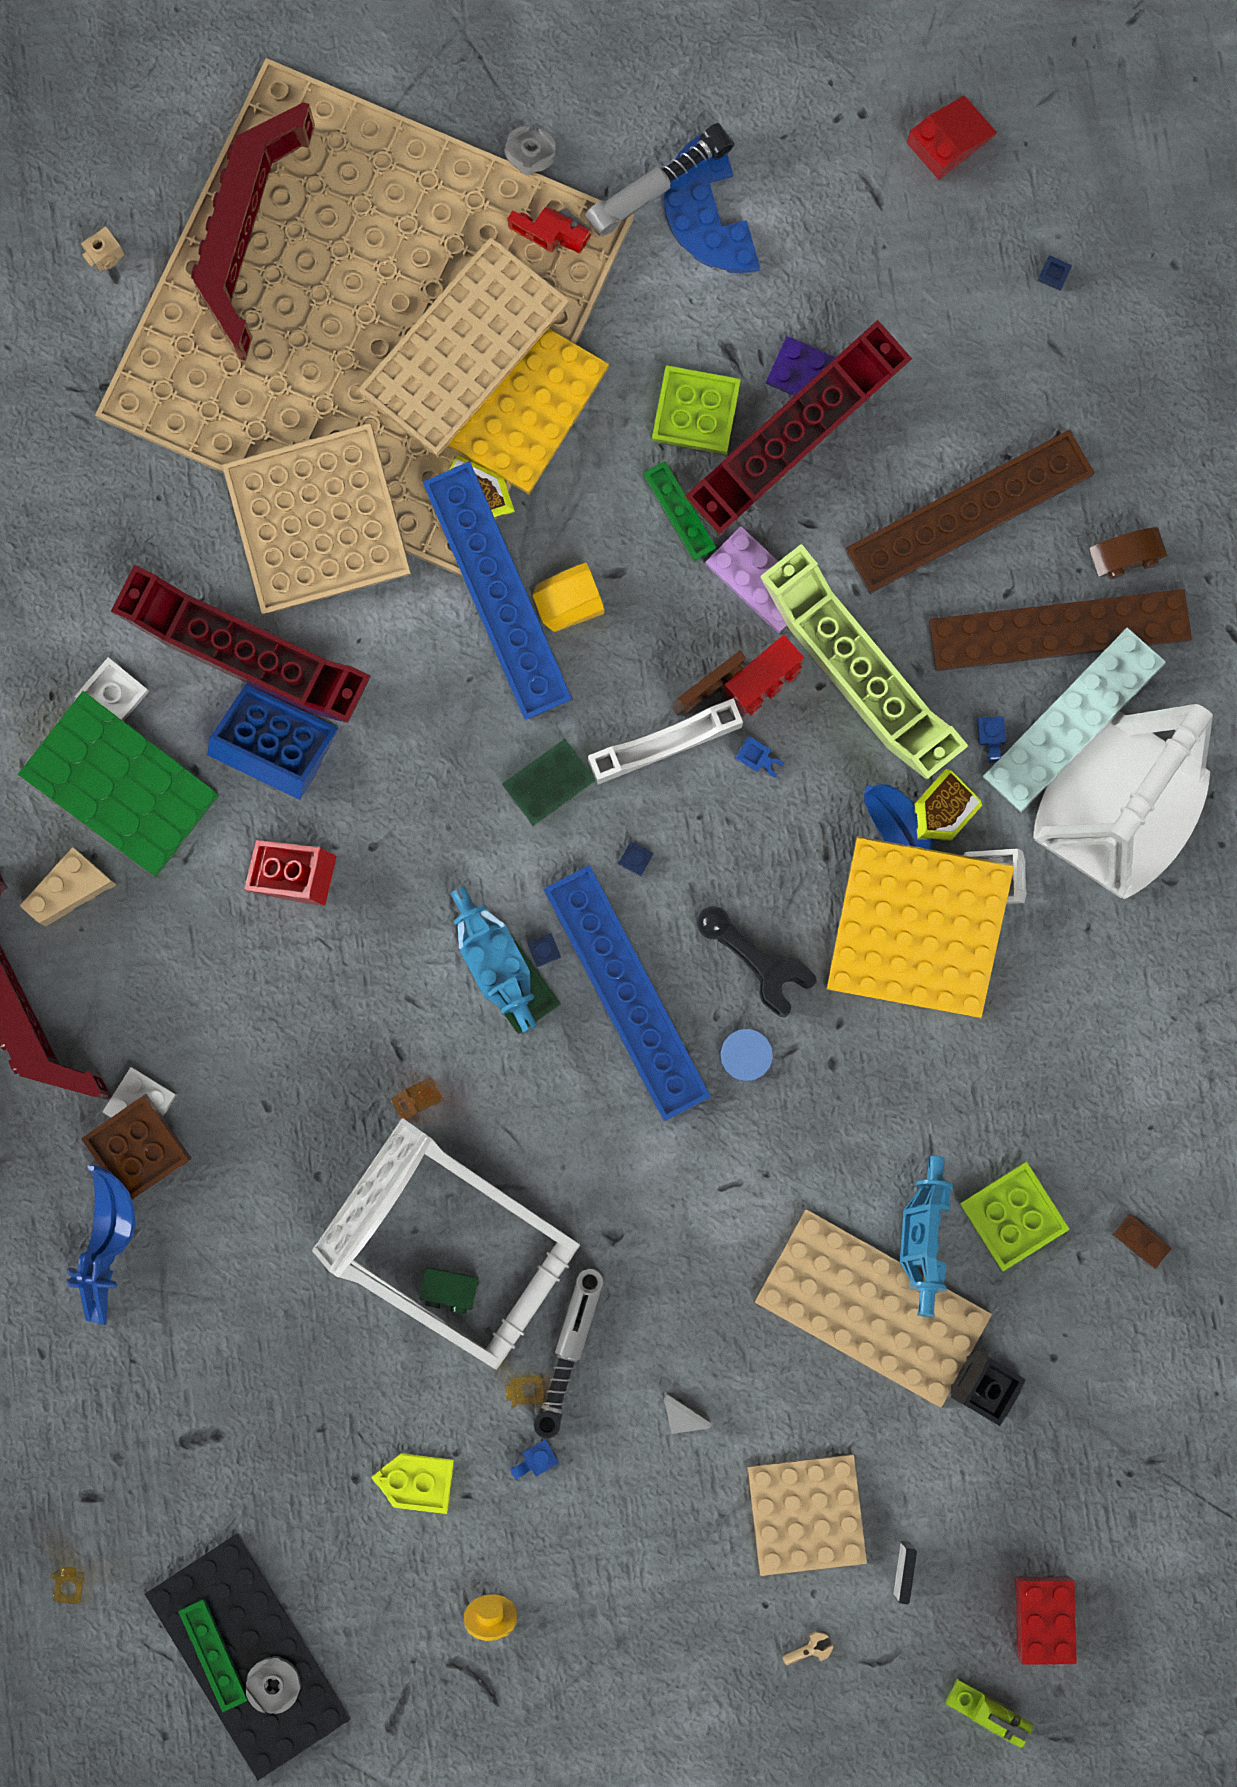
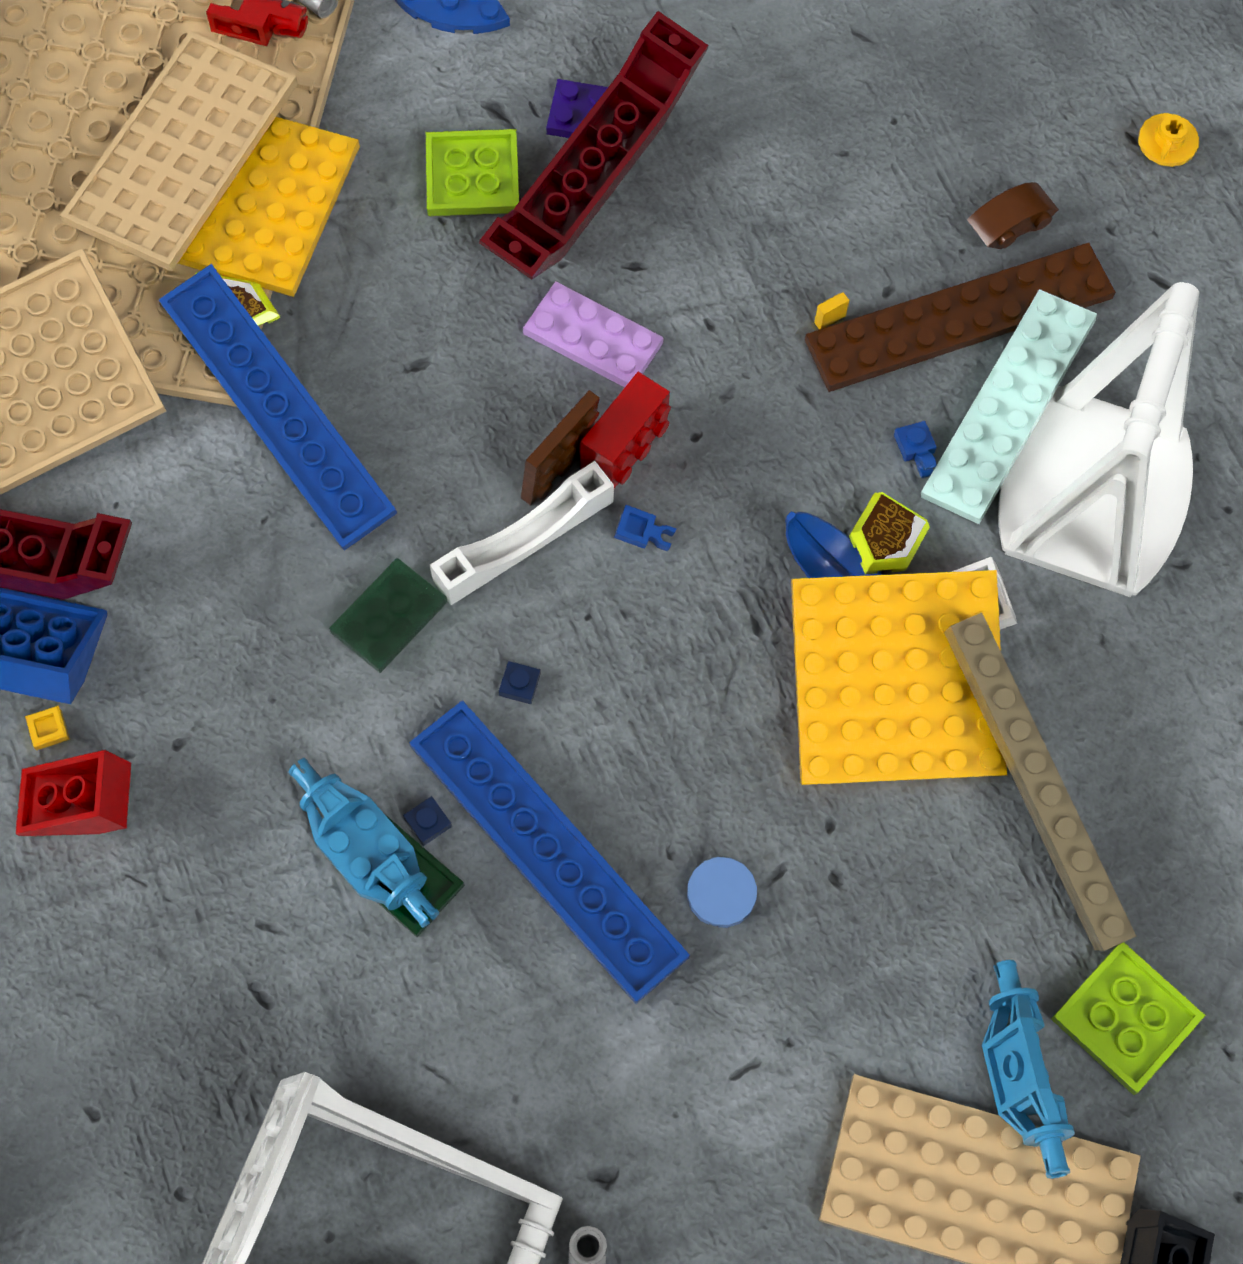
camera: 15 degrees left, 15 degrees down
(279, 812) = (47, 728): none -> yellow tile
(417, 1097) = (297, 1050): clear orange bracket -> none
(568, 598) = (368, 401): yellow slope -> none
(679, 511) = (479, 281): green plate -> none
(715, 924) = (722, 777): black piece -> none
(859, 666) = (736, 396): yellowish green slope -> none
(955, 604) = (831, 310): none -> yellow tile
(969, 511) = (815, 215): reddish brown plate -> none
(998, 1033) = (1039, 783): none -> dark tan brick

